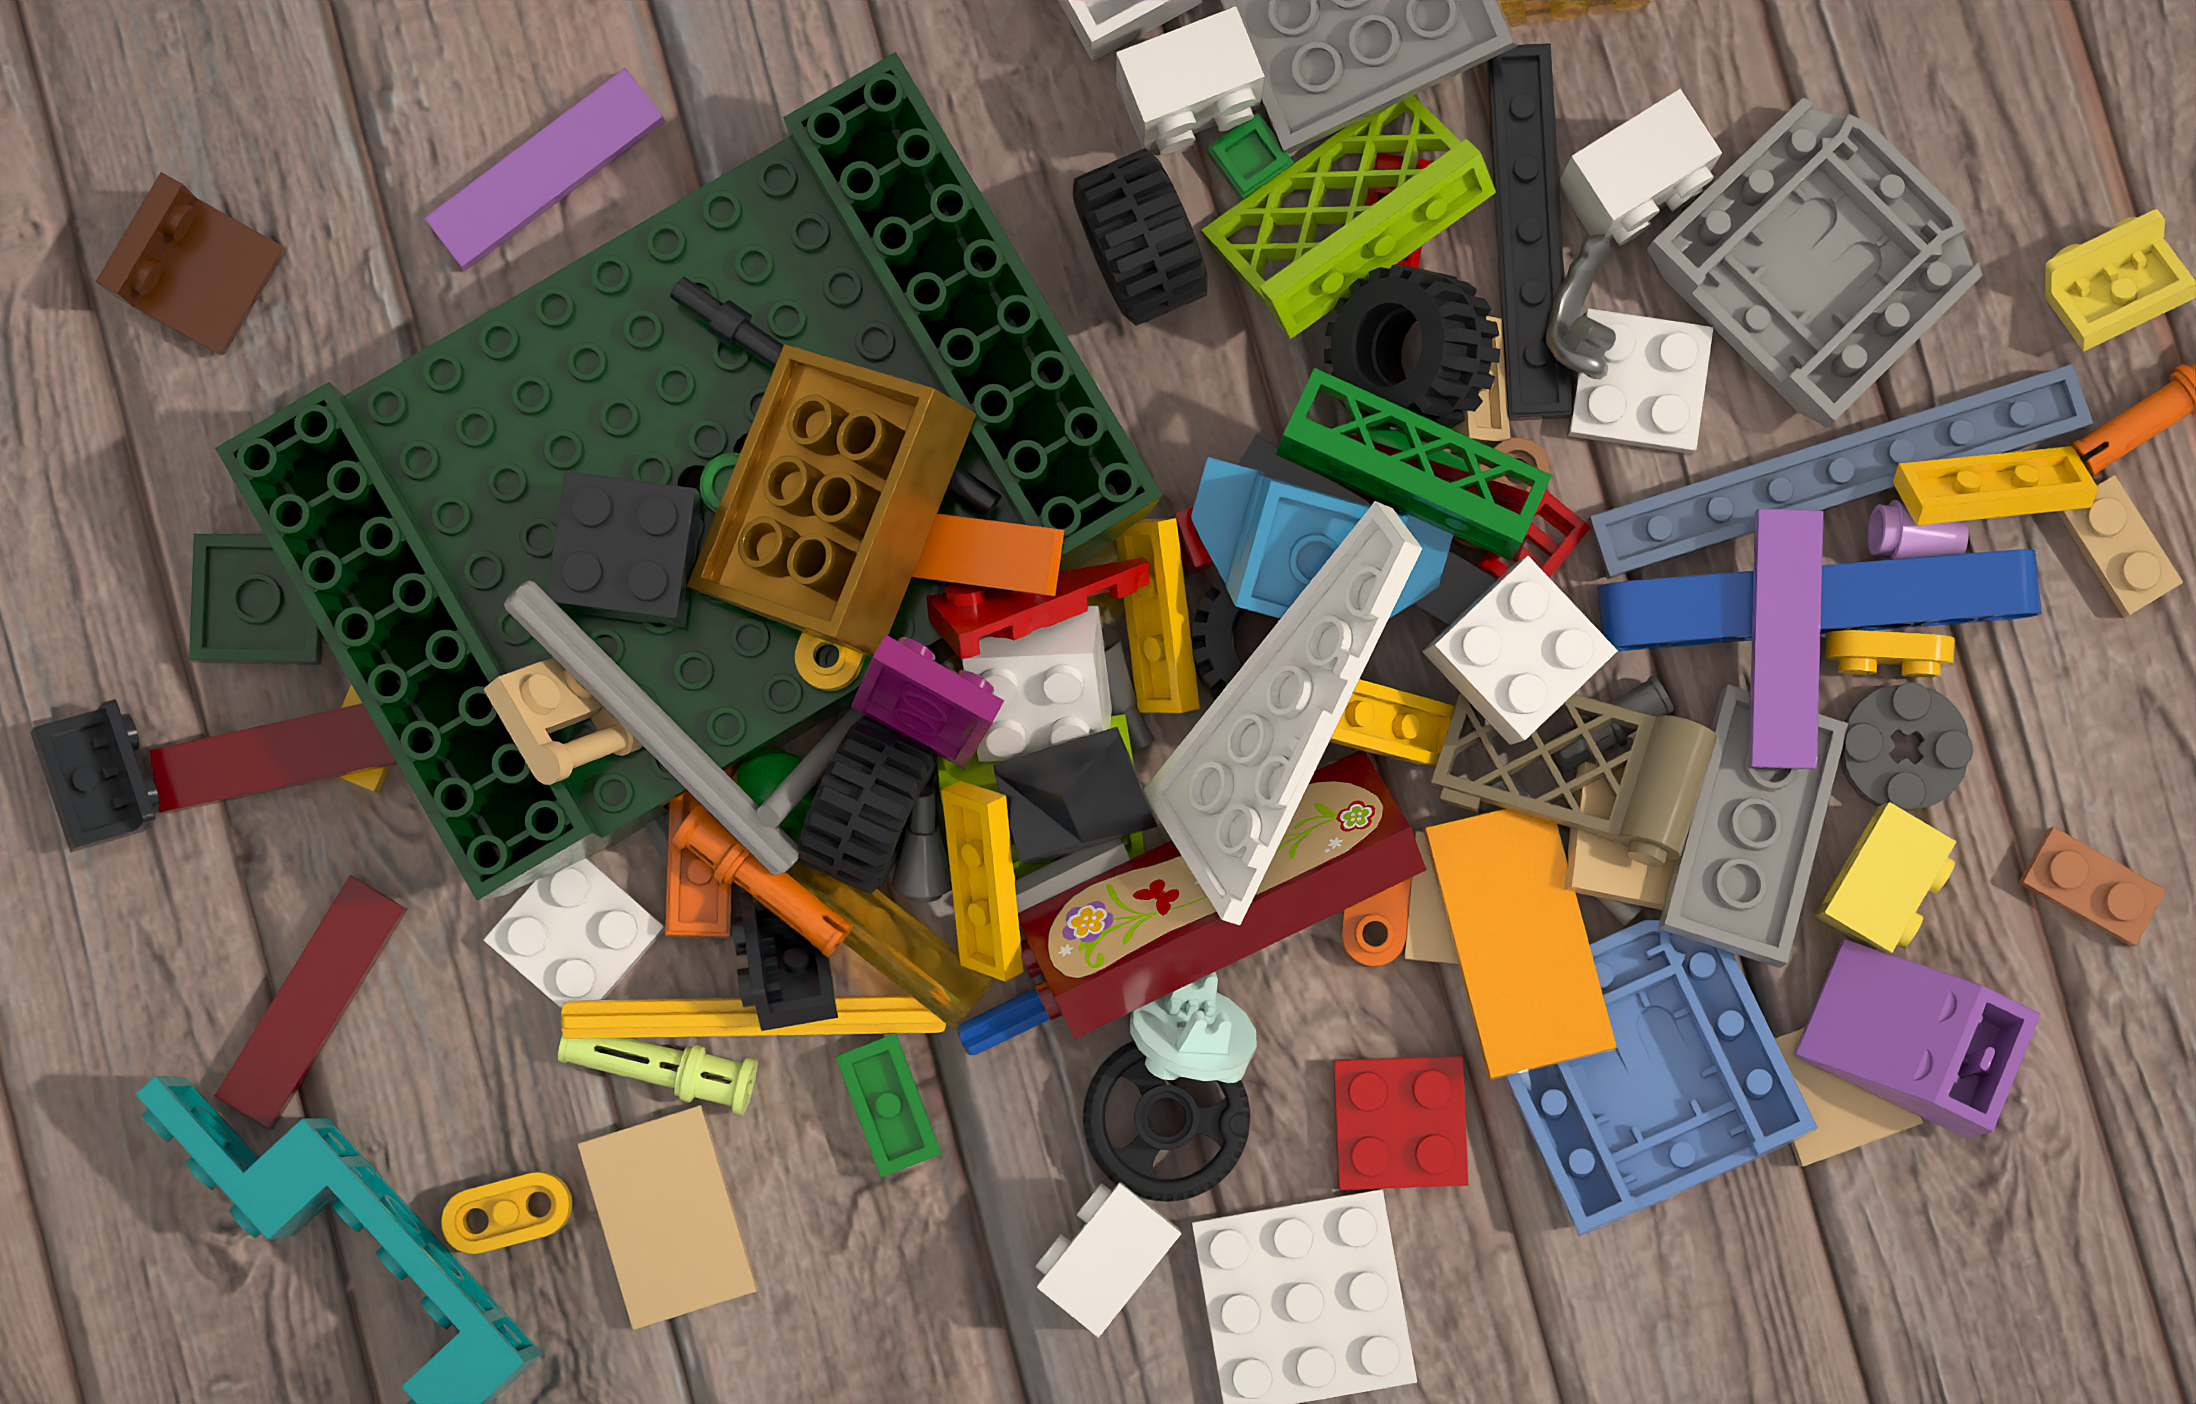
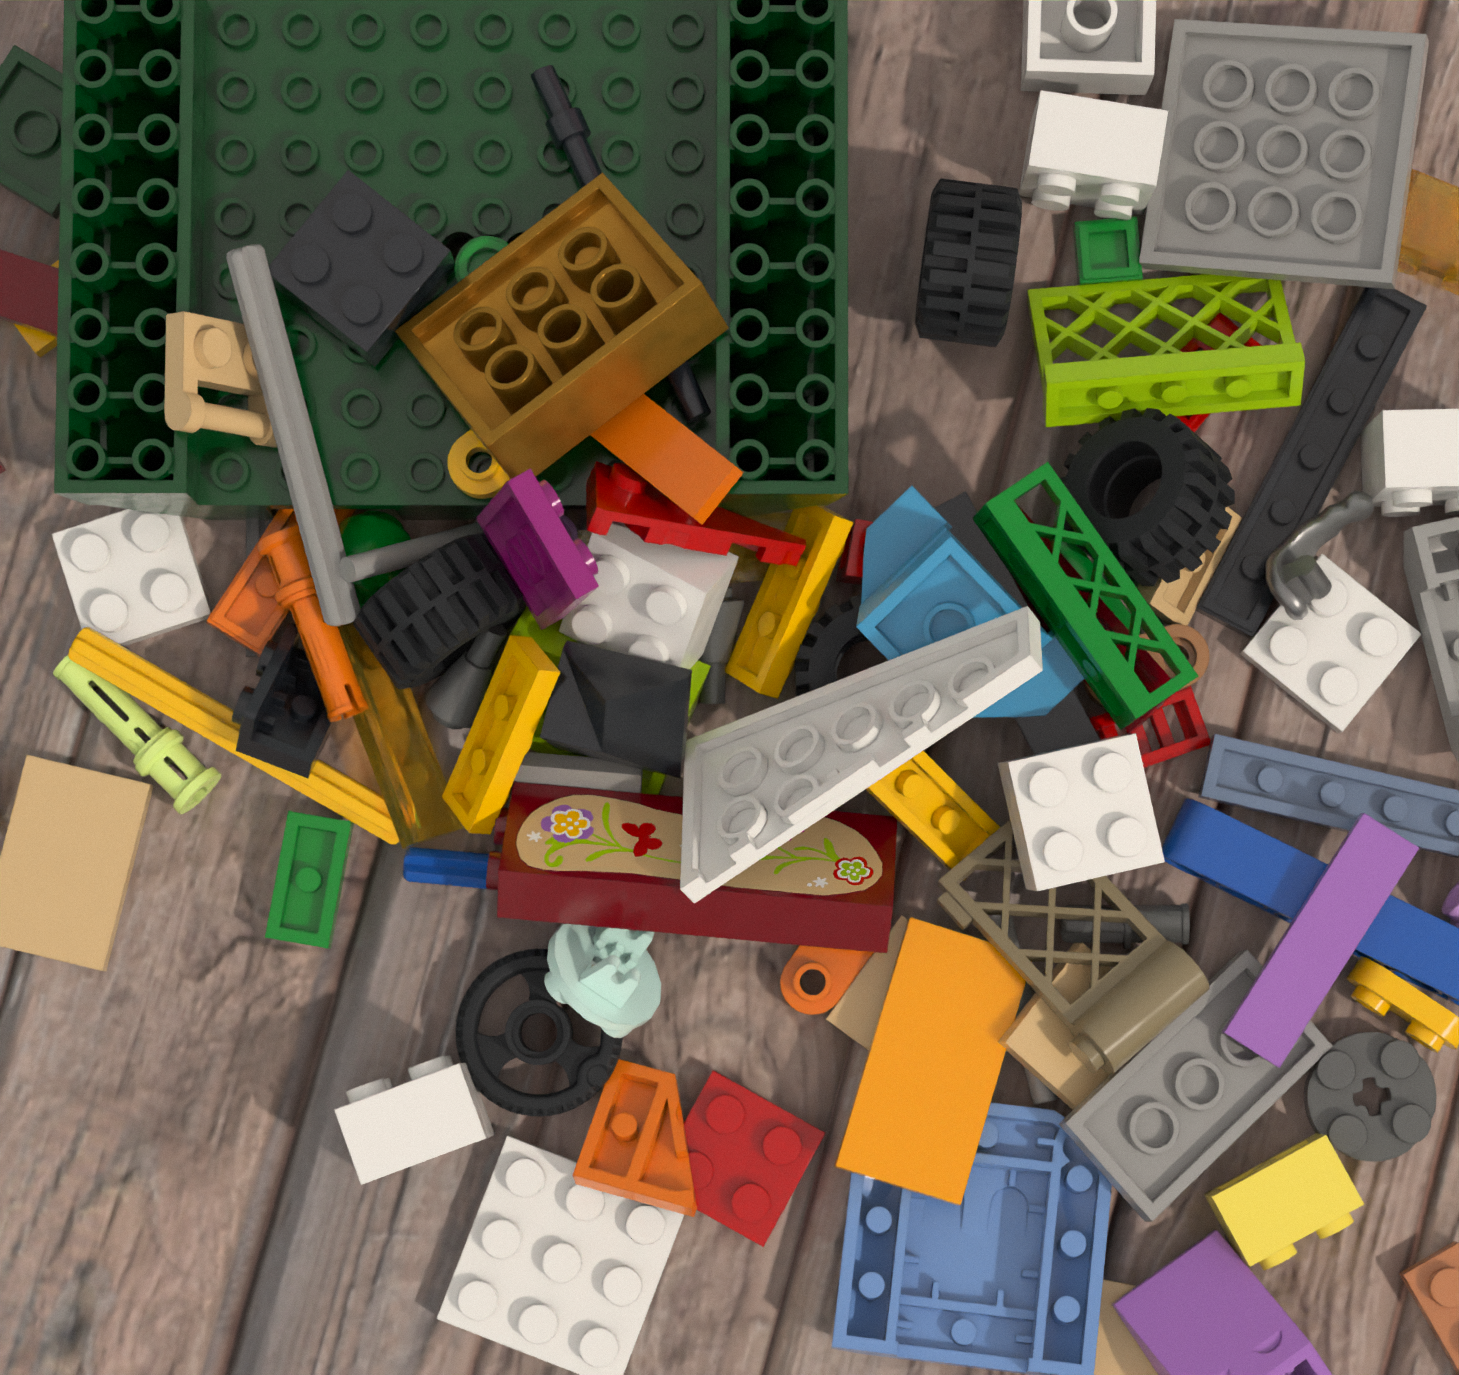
camera: 30 degrees right, 0 degrees up
(1309, 1158) = (639, 1141): none -> orange wing

